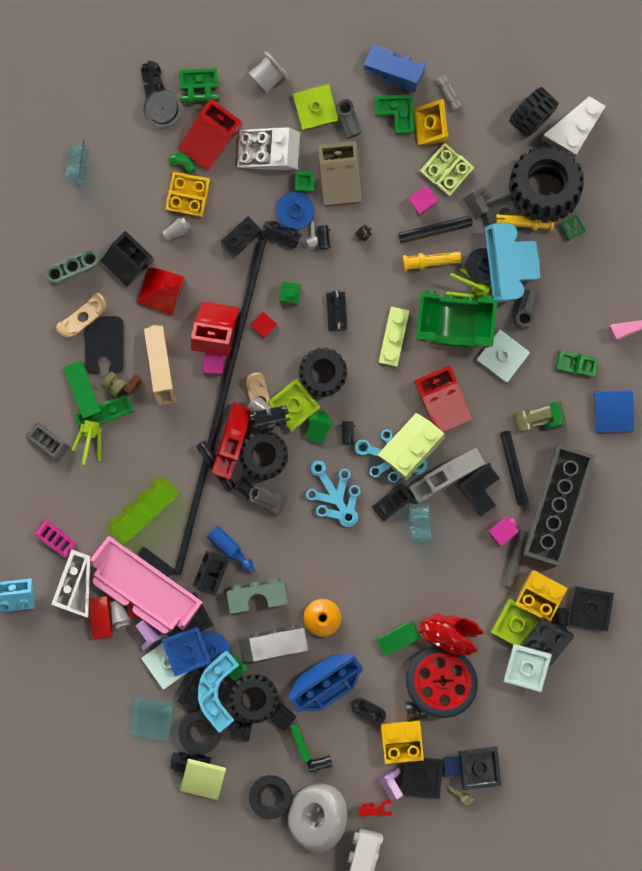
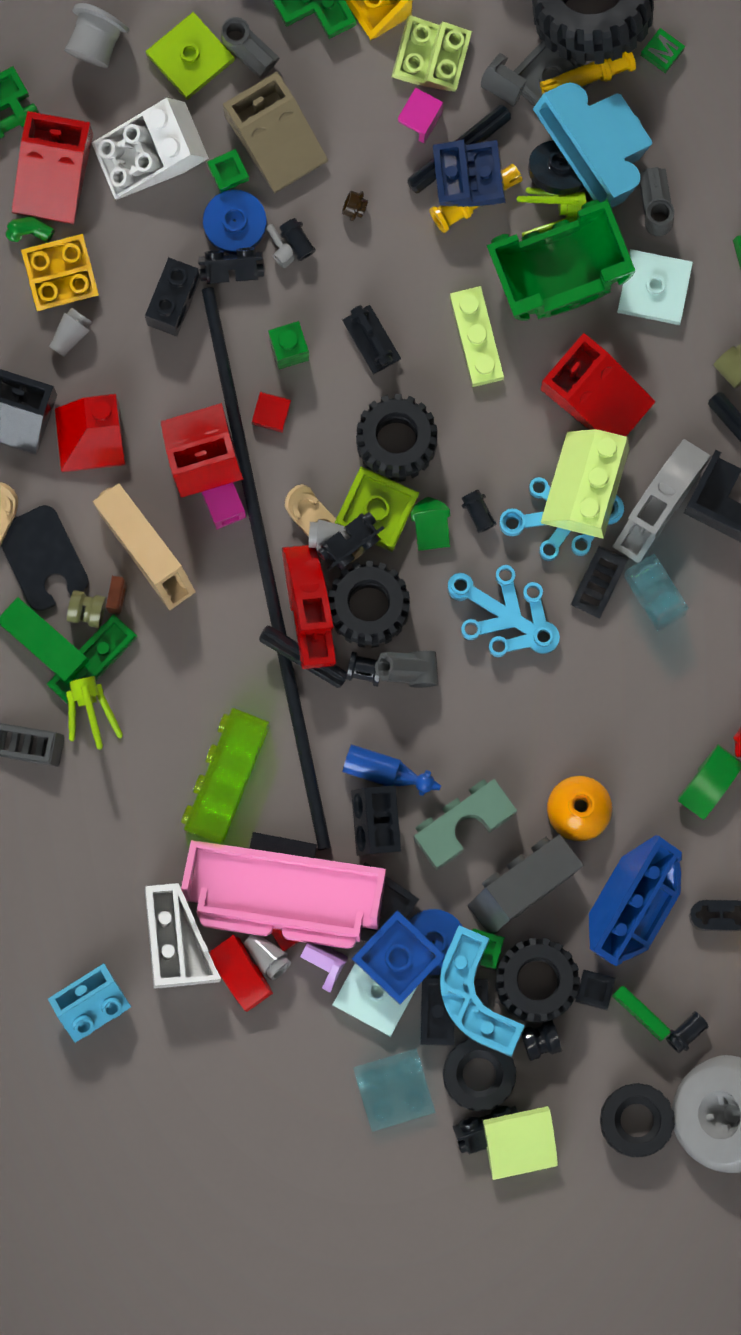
camera: 25 degrees left, 5 degrees down
(43, 527) = (83, 879): dark pink slope -> none
(432, 246) = (469, 173): none -> dark blue slope

